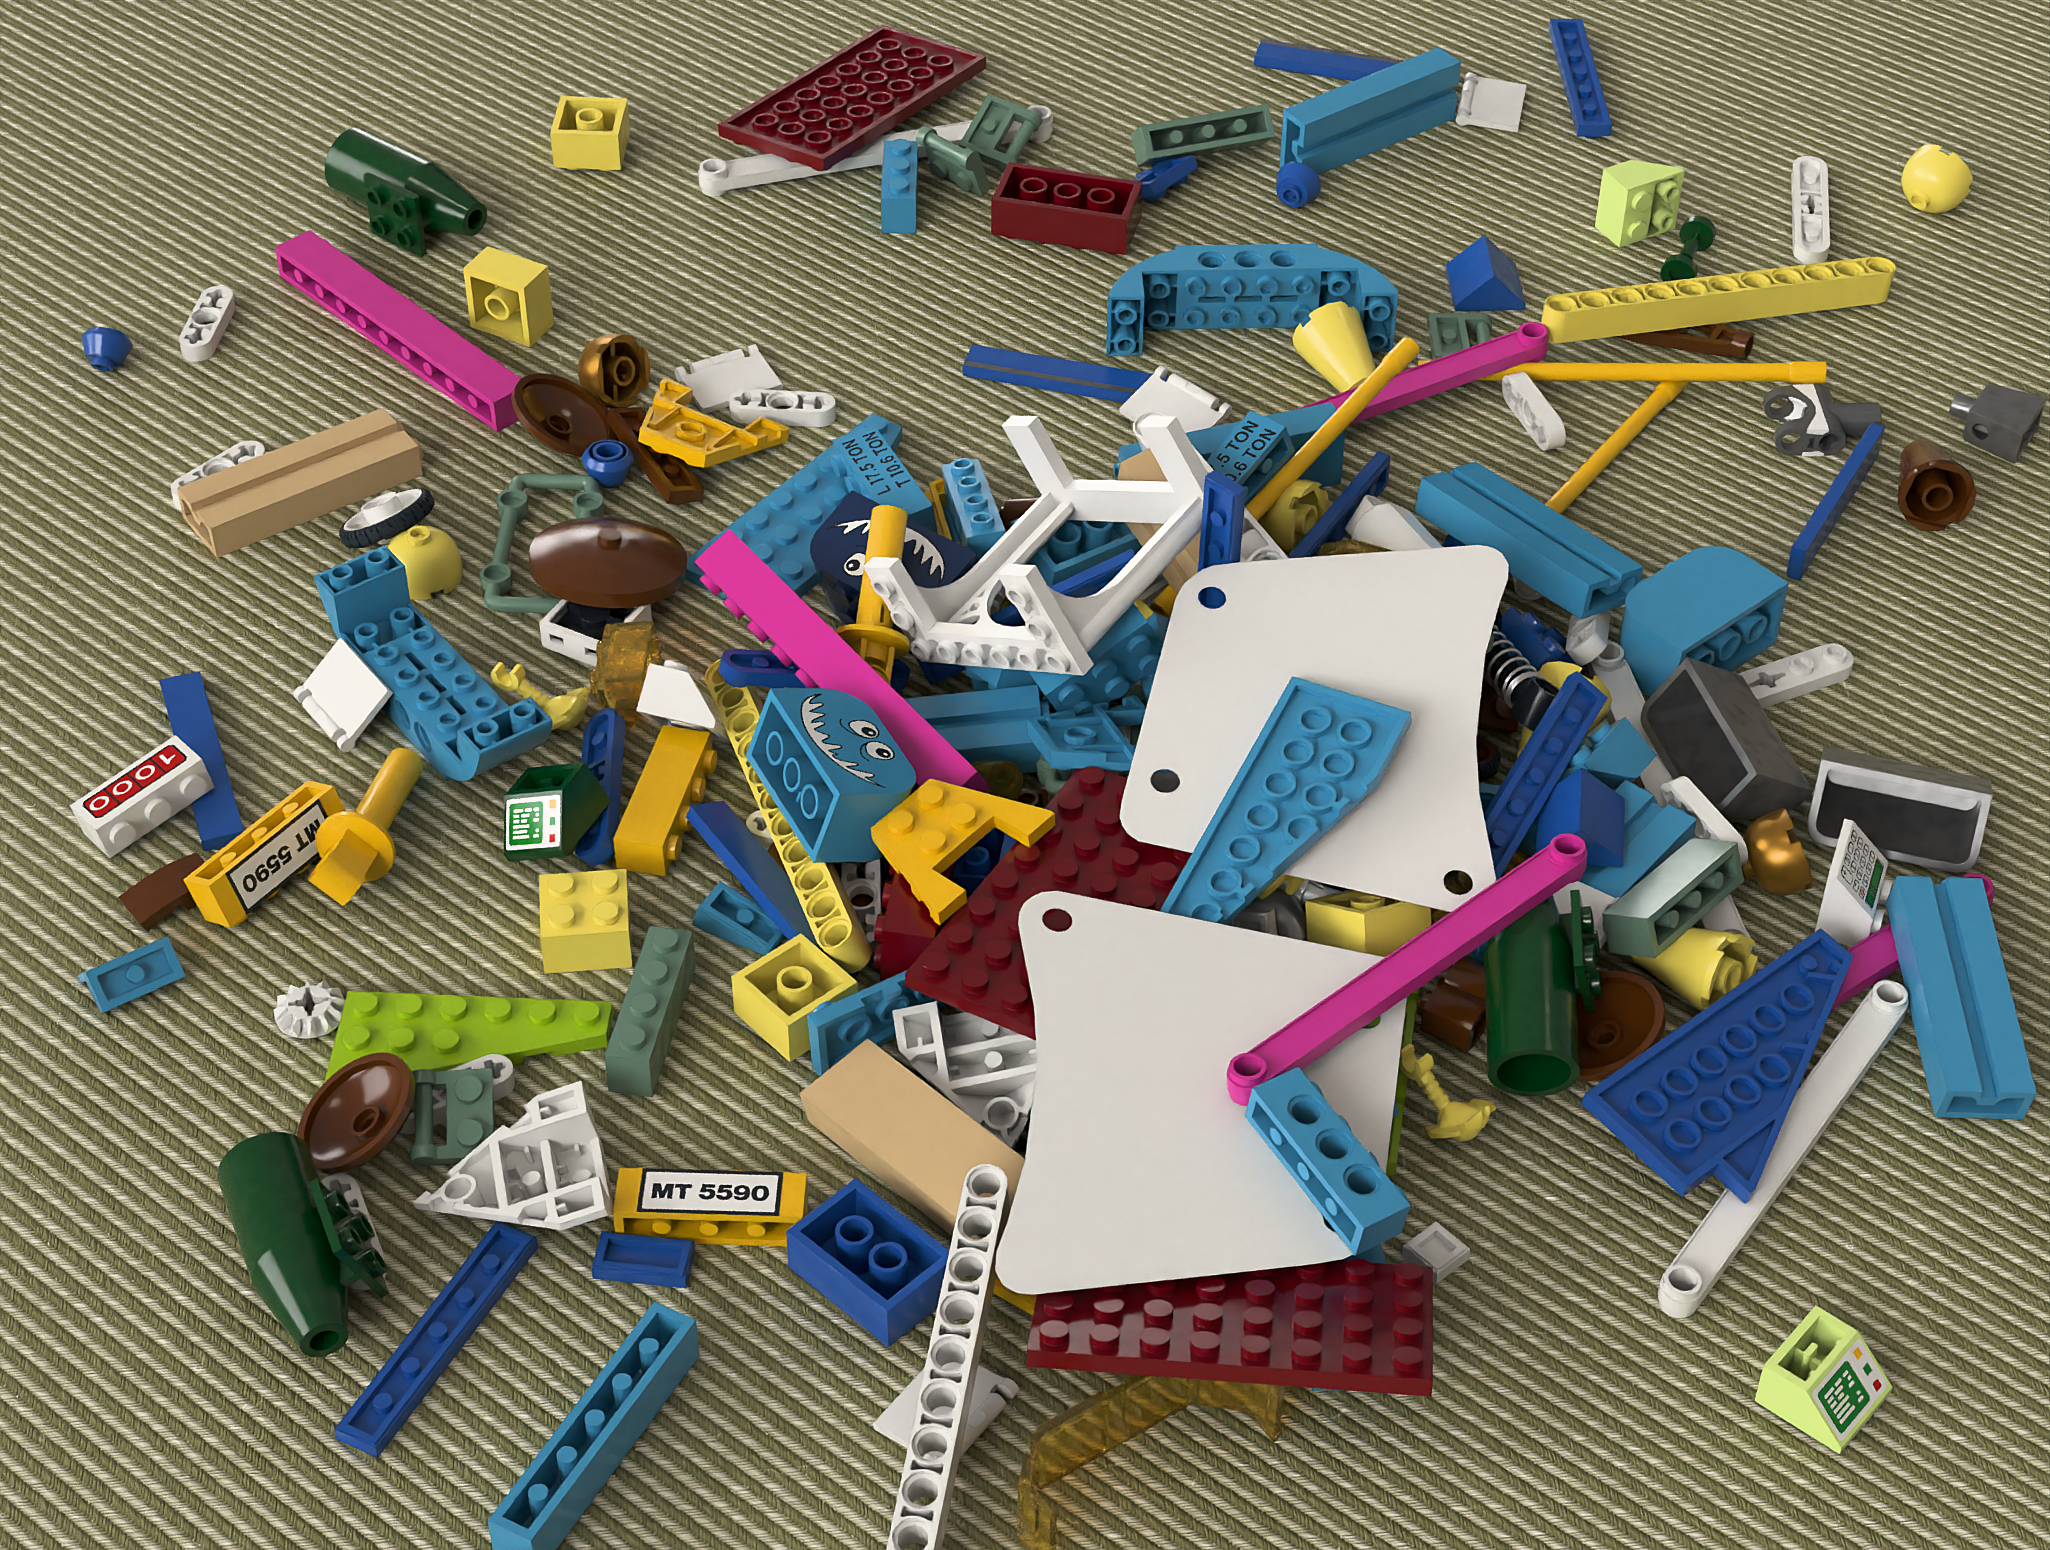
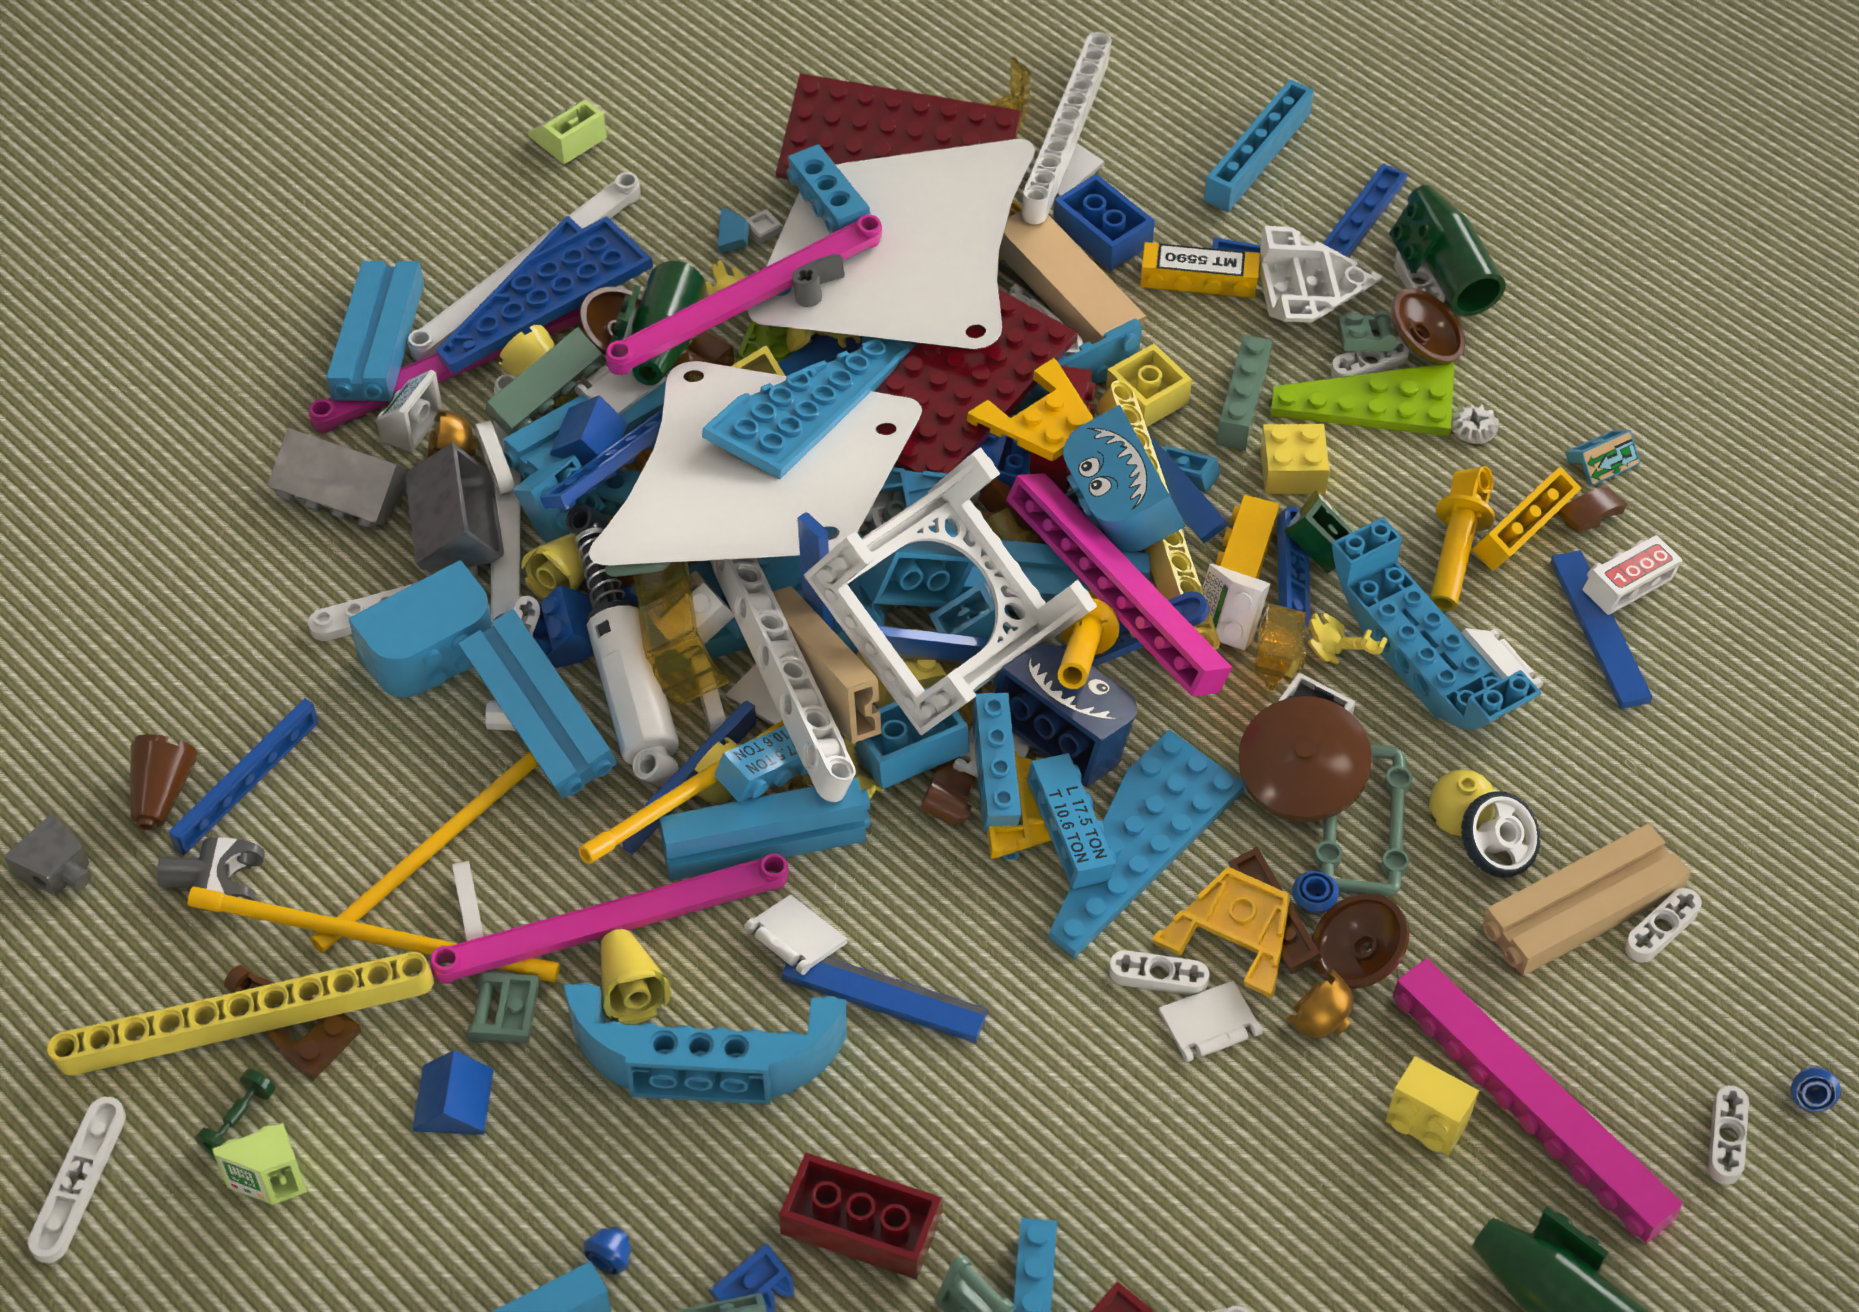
camera: 175 degrees left, 10 degrees up
(1322, 977) = (811, 275): none -> dark grey panel
(1482, 1226) = (732, 231): none -> dark azure tile

